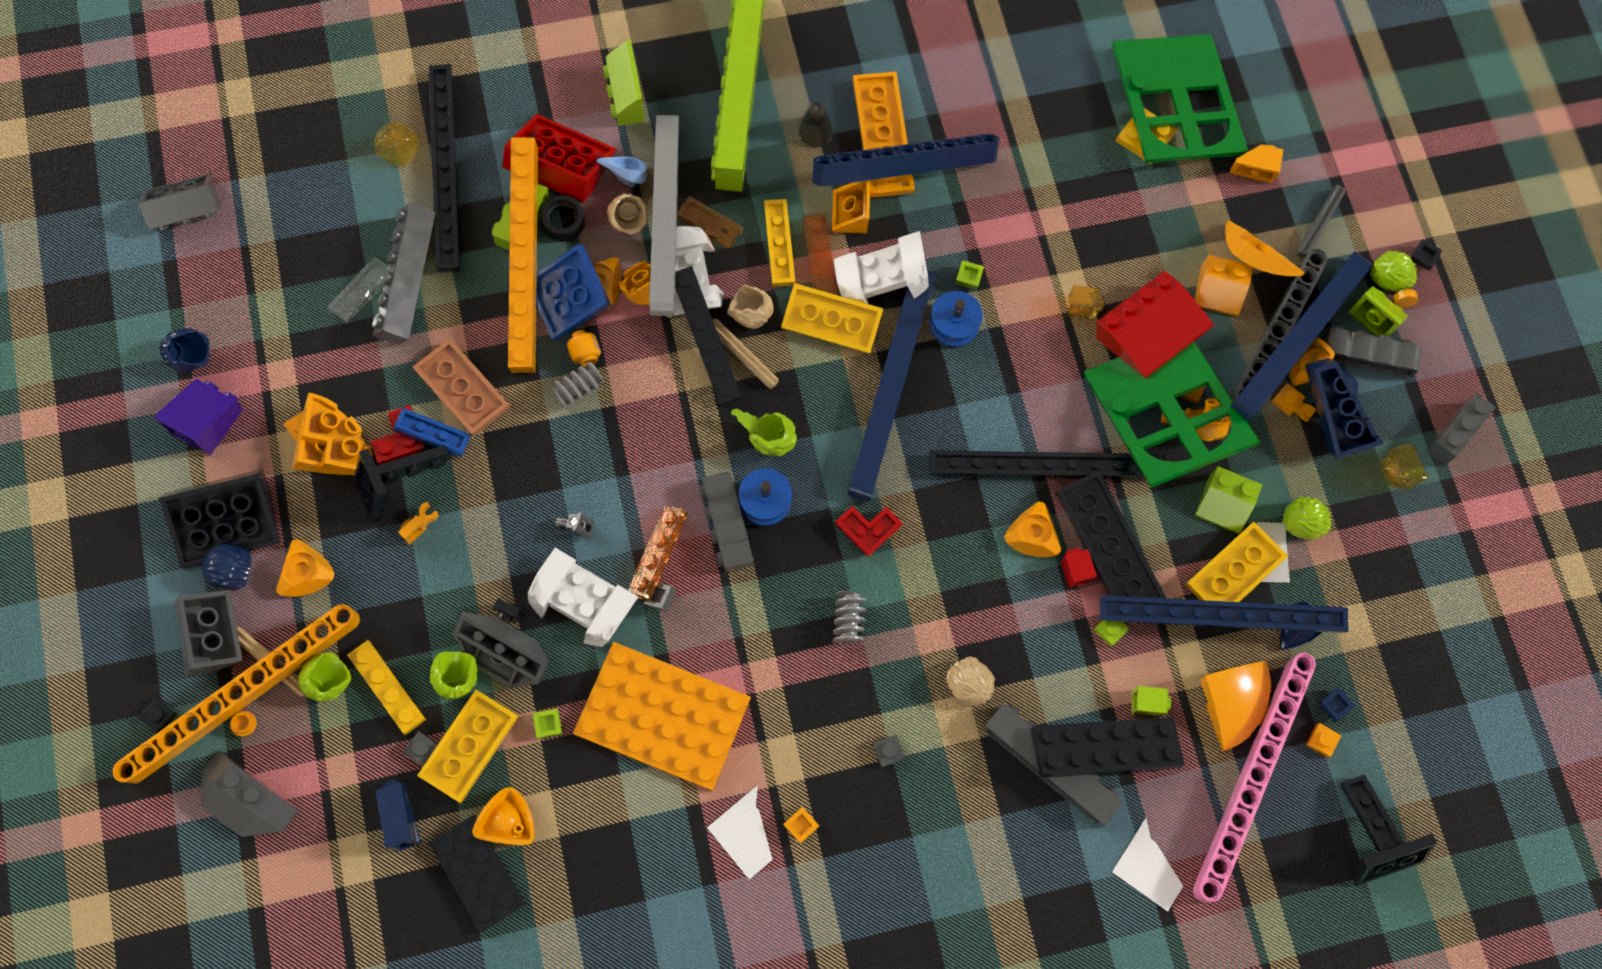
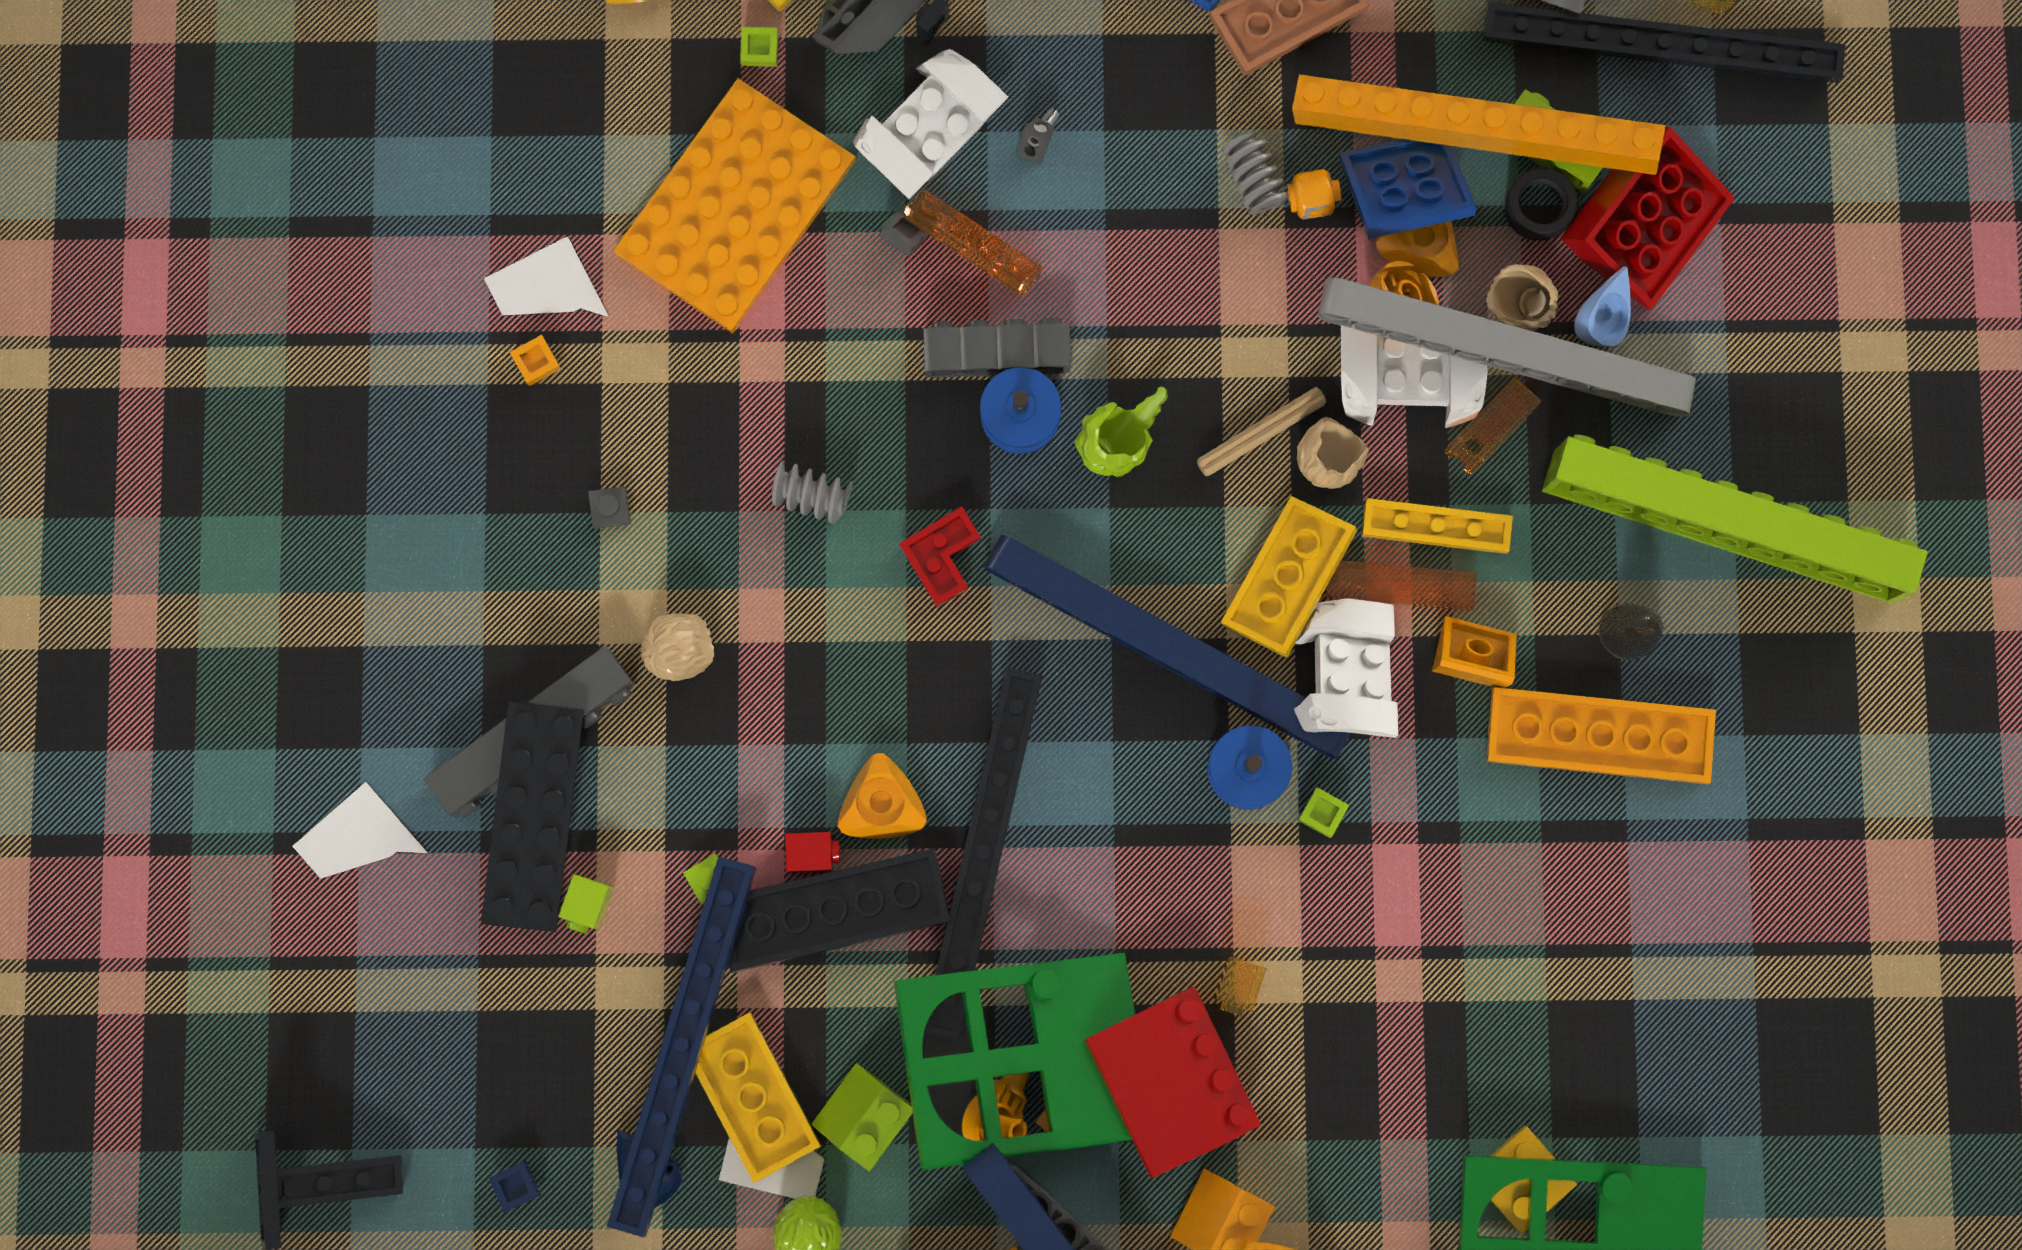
camera: 110 degrees right, 10 degrees up
(624, 85) = (1755, 338): lime slope -> none
(706, 336) = (1295, 375): black plate -> none
(904, 159) = (1533, 749): dark blue beam -> none
(1237, 701) = (558, 1039): light orange brick -> none
(1246, 783) = (423, 1023): bright pink beam -> none
(1323, 740) = (469, 1151): light orange plate -> none

